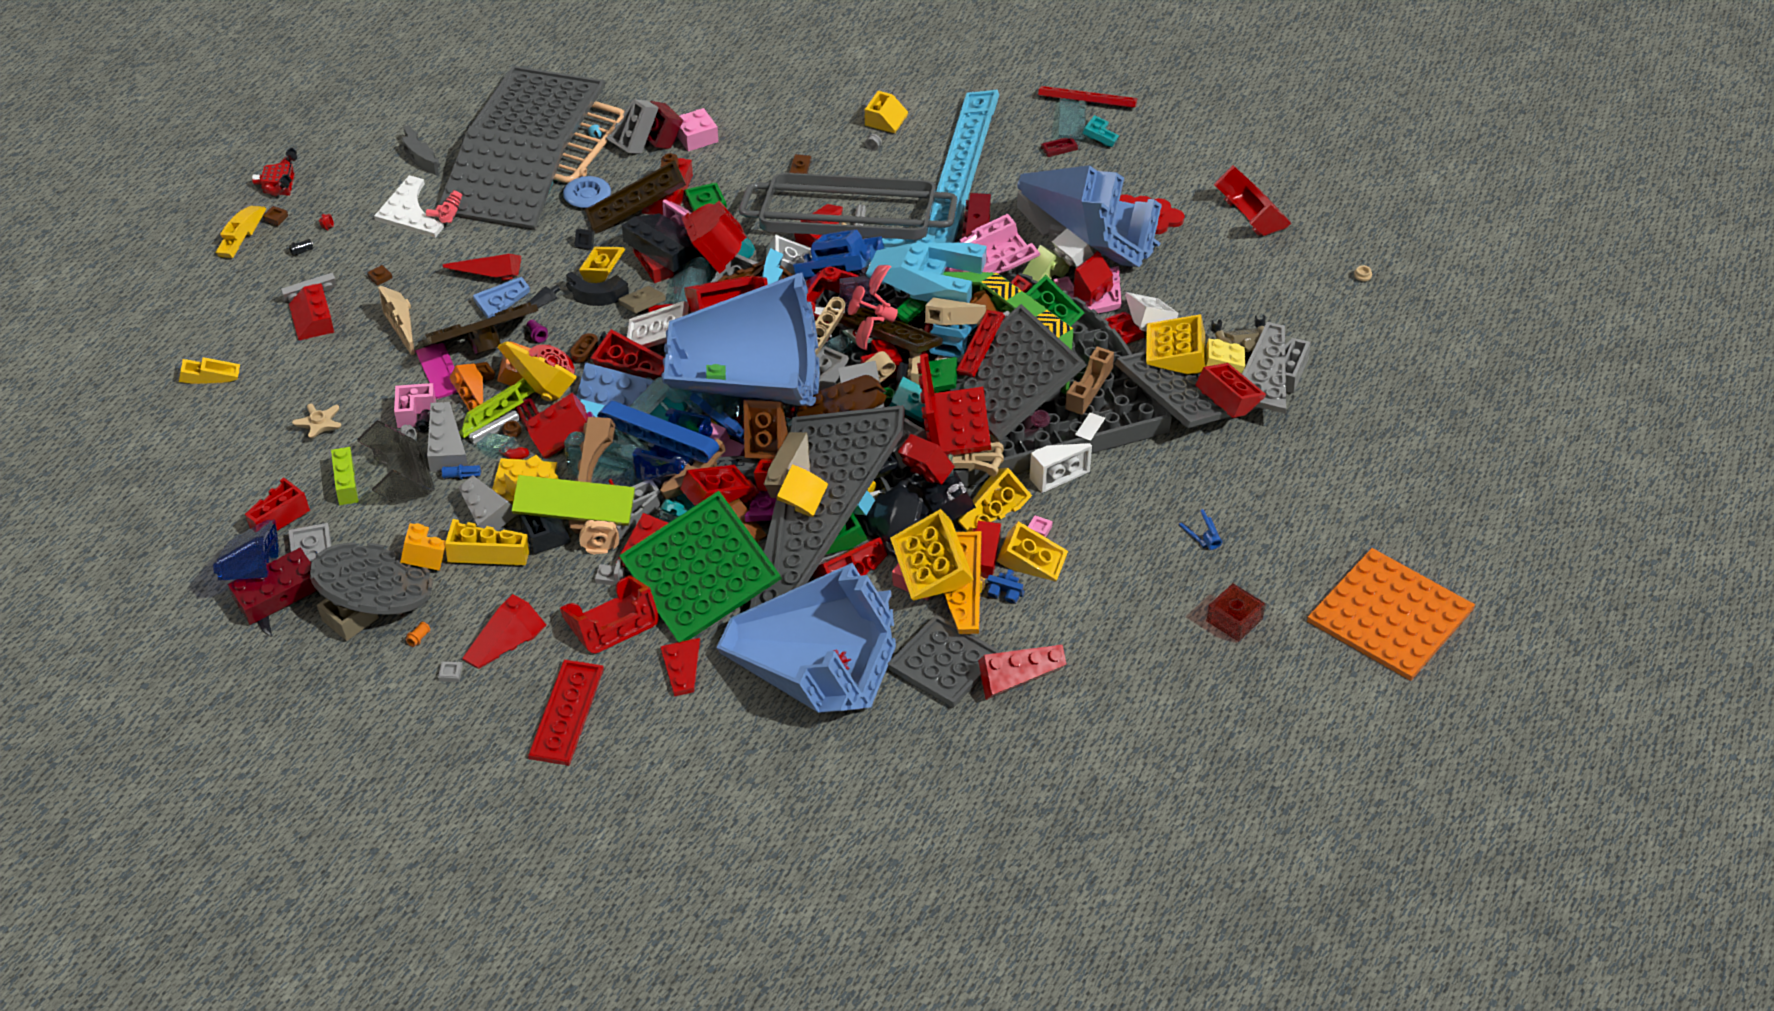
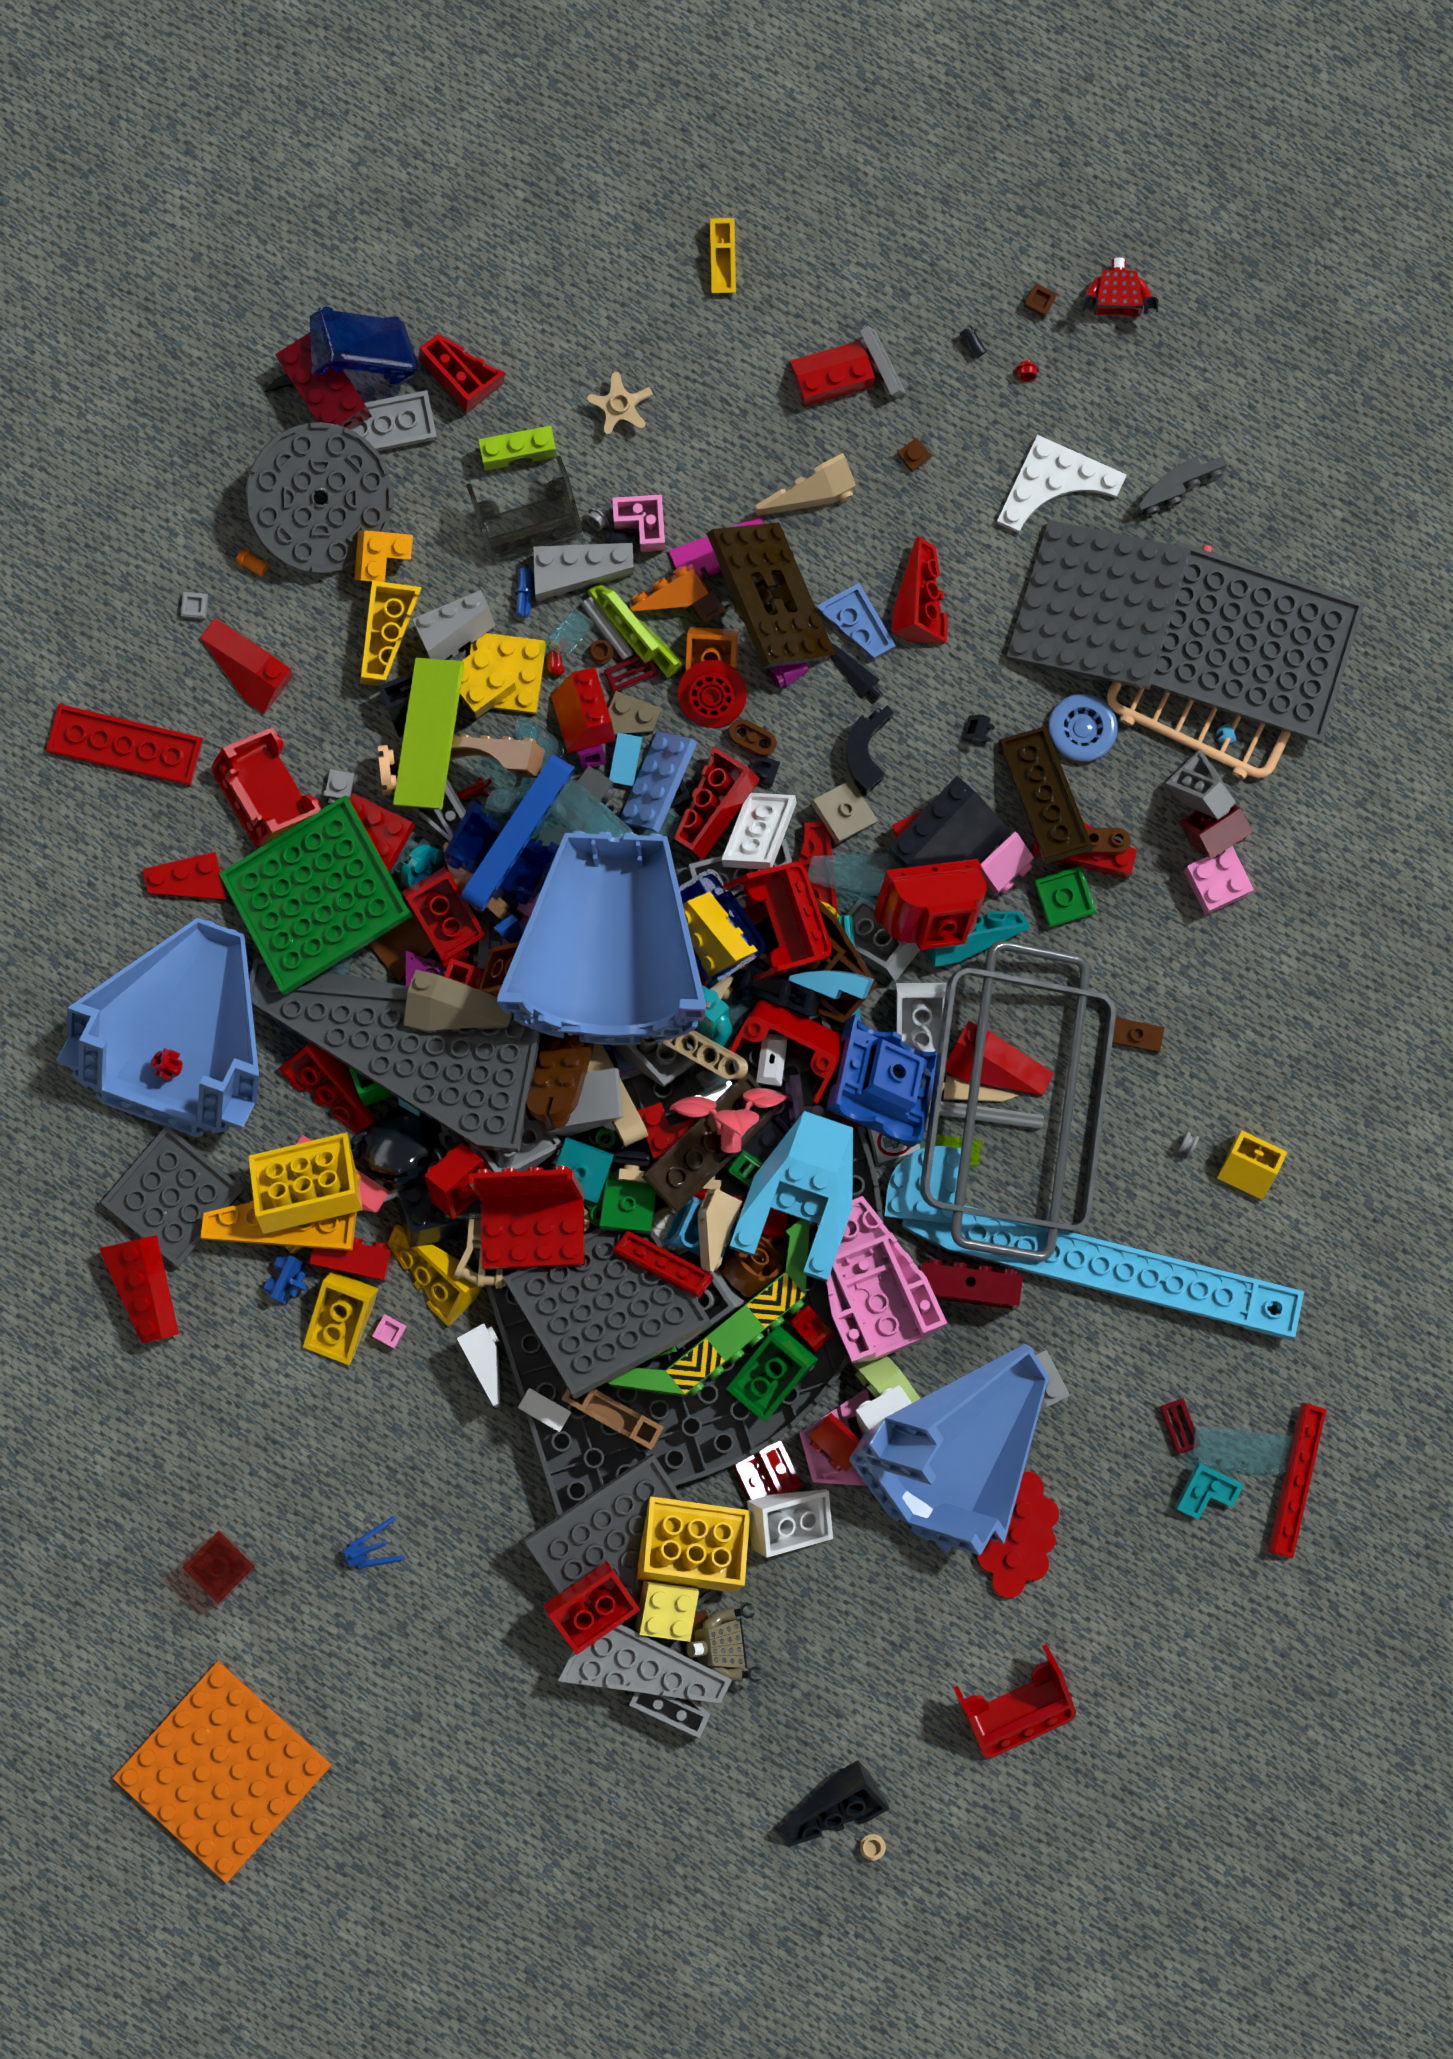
camera: 90 degrees right, 35 degrees up
(237, 228) = (1007, 254): yellow slope -> none
(447, 209) = (1035, 534): coral piece -> none
(543, 378) = (668, 686): yellow wedge -> none
(600, 263) = (905, 752): yellow slope -> none
(716, 372) = (599, 904): bright green plate -> none
(802, 490) = (398, 1018): yellow slope -> none
(1332, 281) = (842, 1799): none -> black wedge

